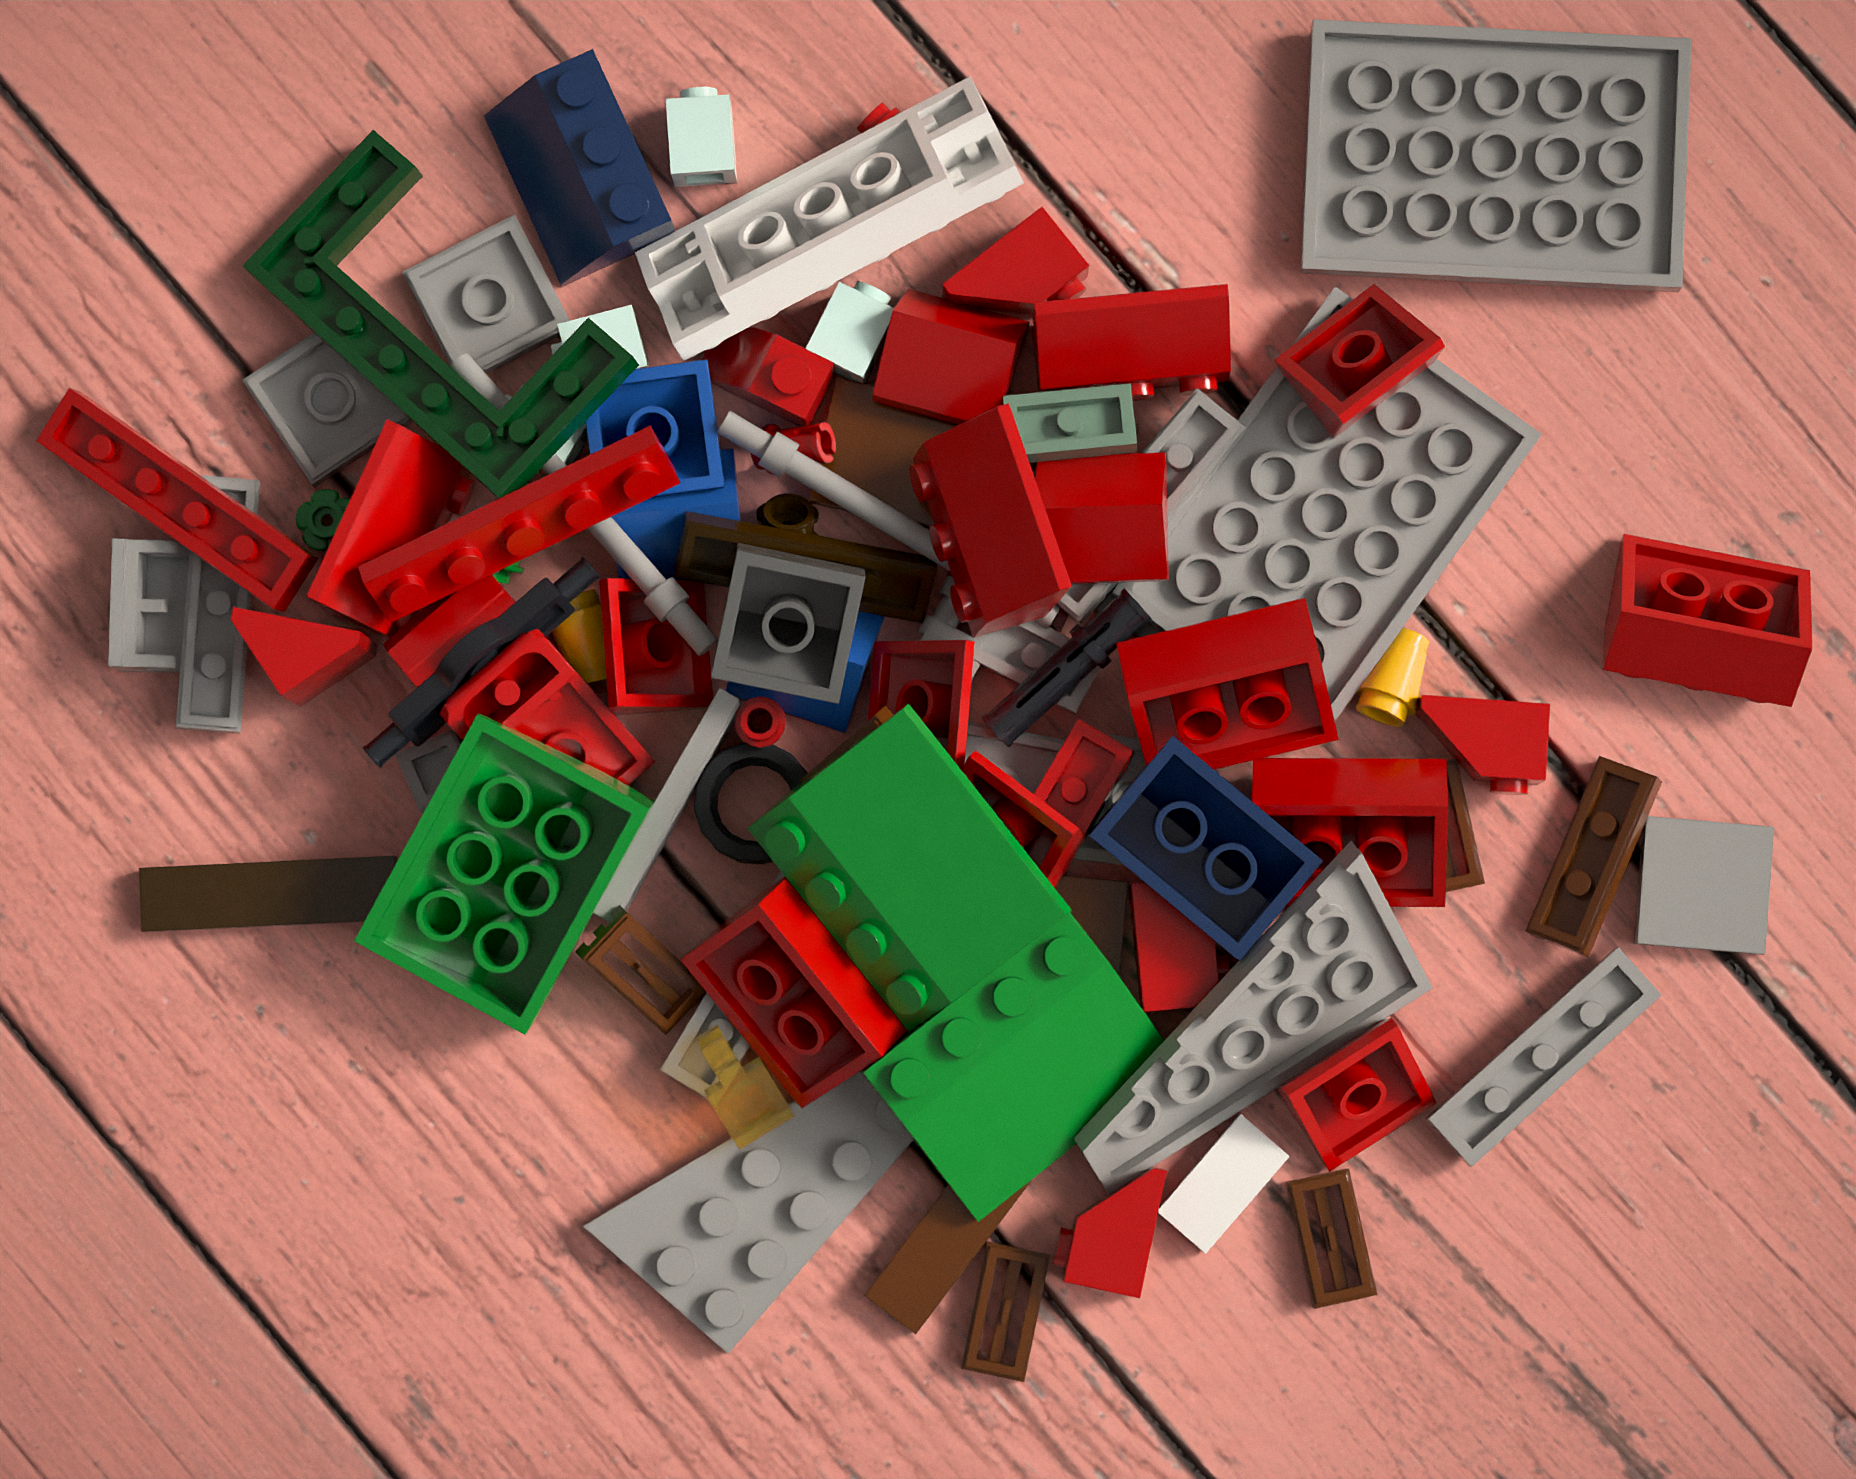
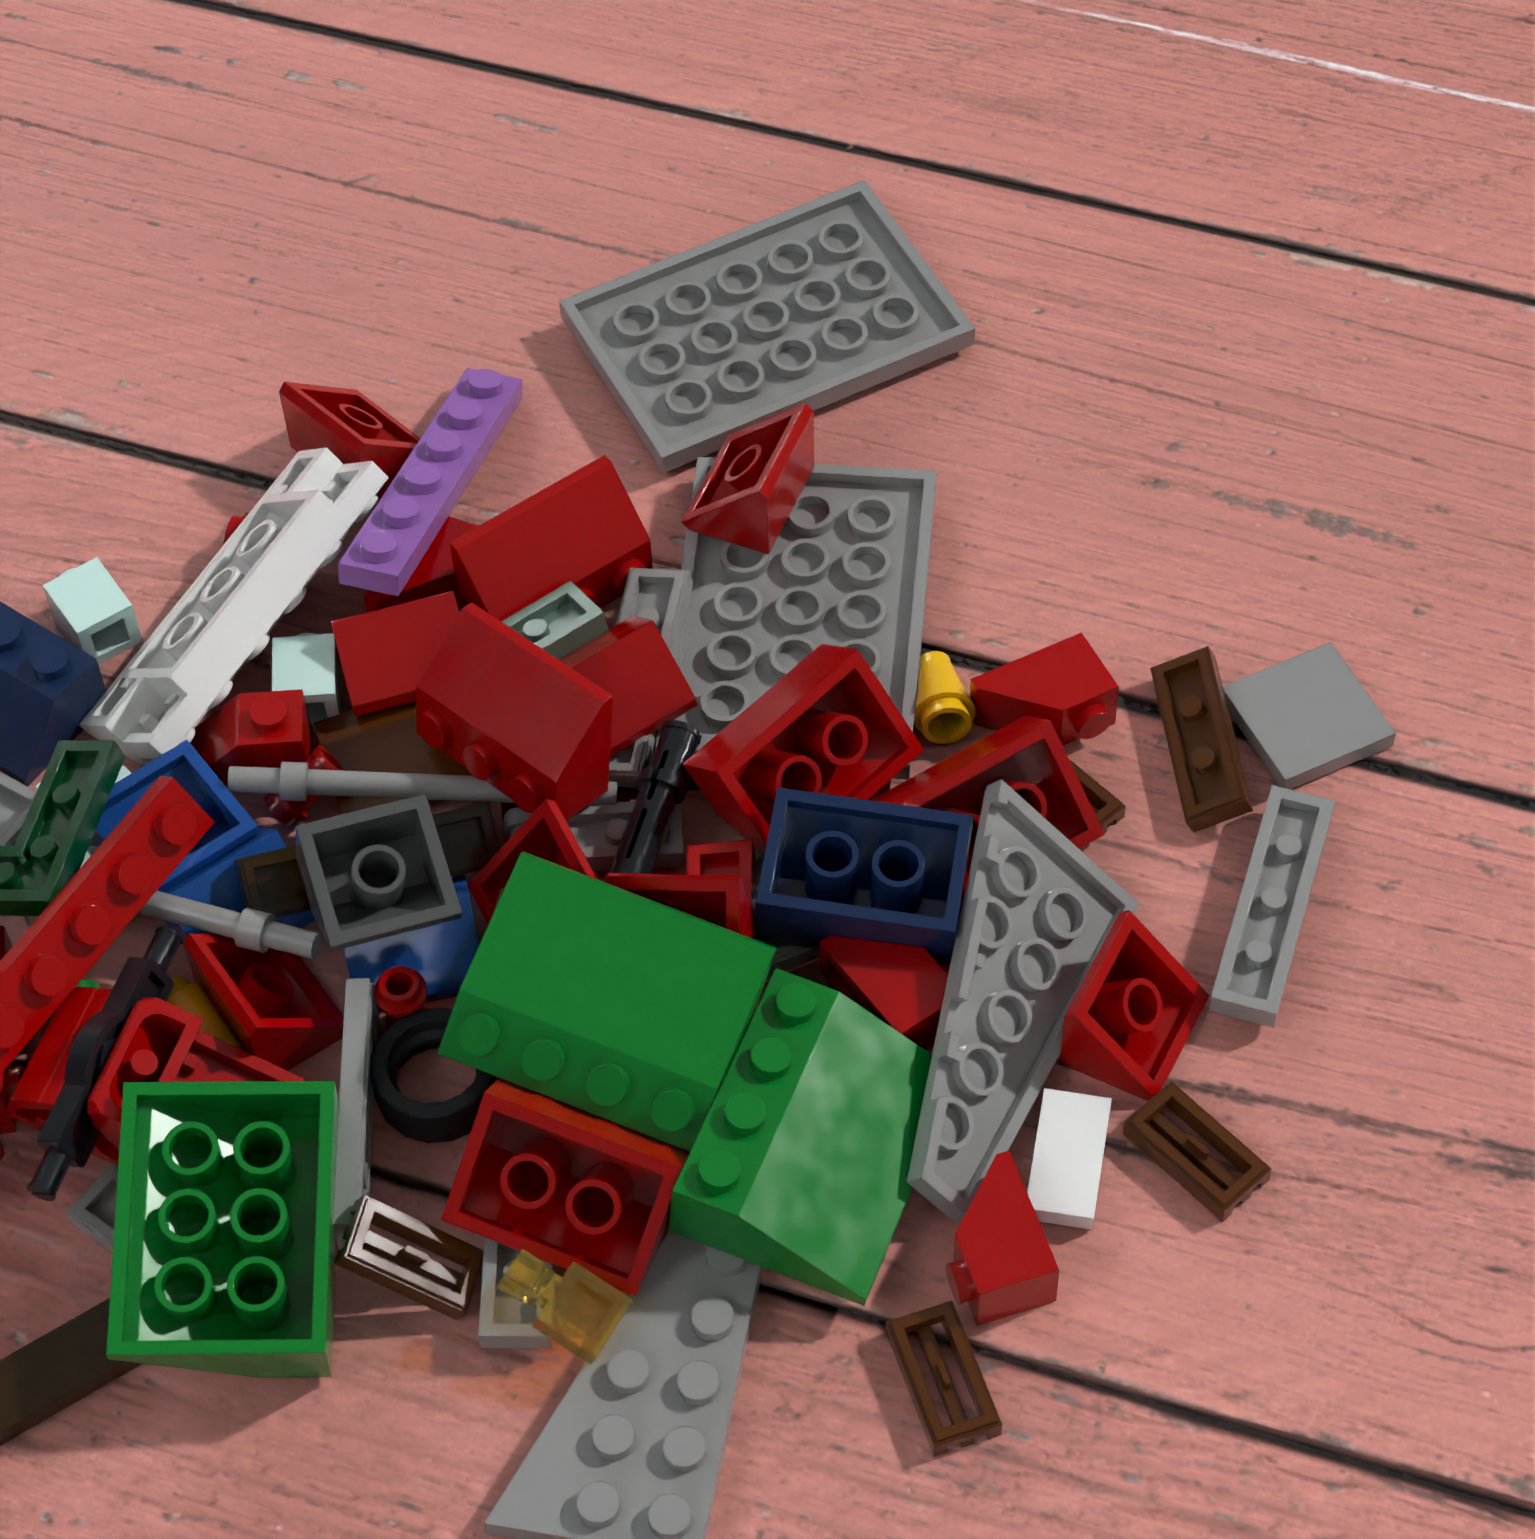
camera: 30 degrees left, 30 degrees down
(933, 1258) = (845, 1366): reddish brown tile -> none
(1042, 68) = (347, 426): none -> red slope
(1073, 184) = (430, 482): none -> medium lavender plate
(1708, 621) = (1168, 533): red slope -> none

